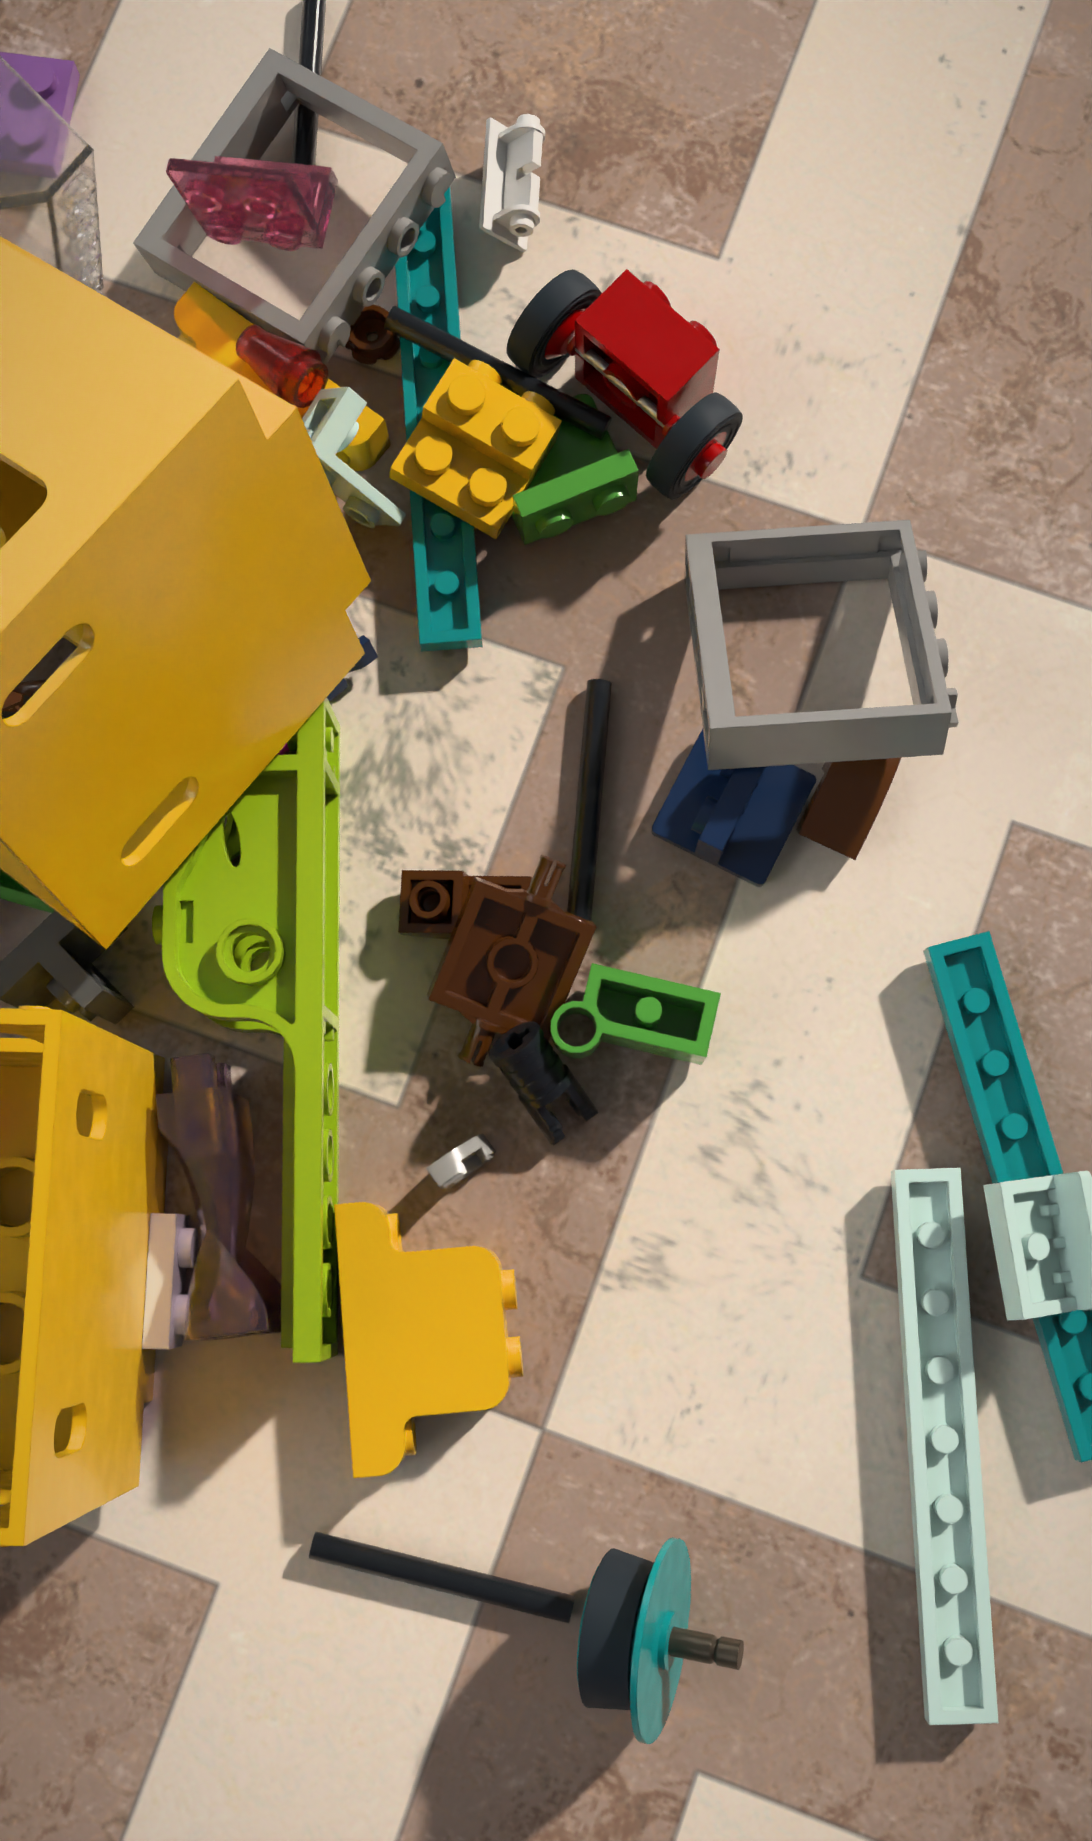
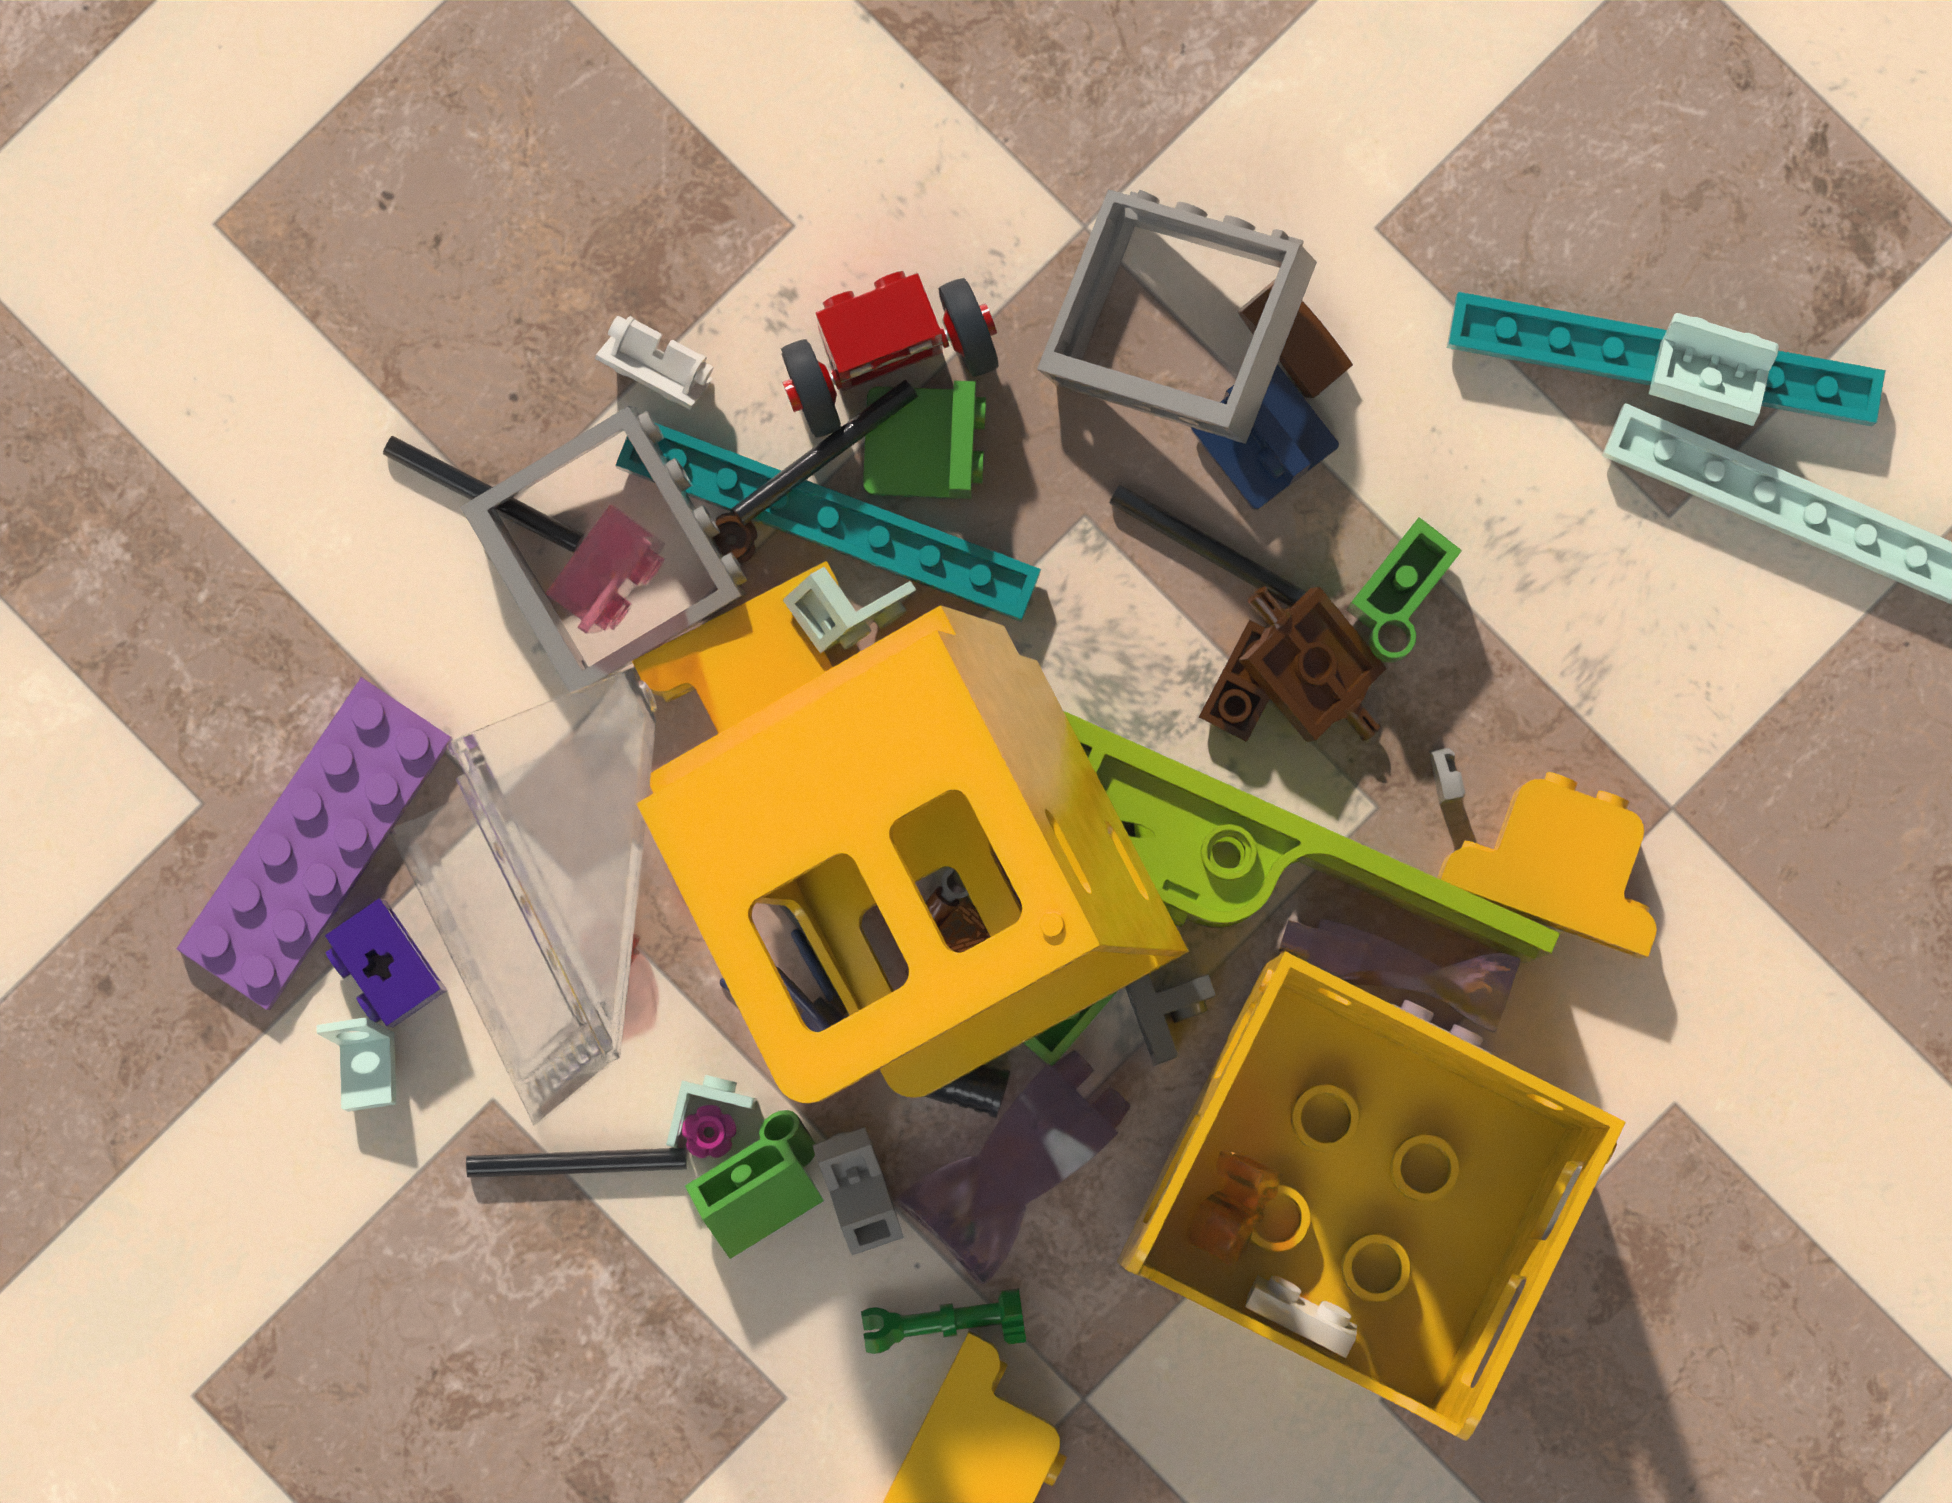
camera: 70 degrees left, 5 degrees up
(283, 365) = (751, 620): clear red cone -> none
(442, 1577) = (1745, 931): black bar -> none
(476, 446) = (884, 498): yellow plate -> none
(539, 1077) = (1410, 685): black hinge -> none
(639, 1636) = (1850, 798): piece -> none

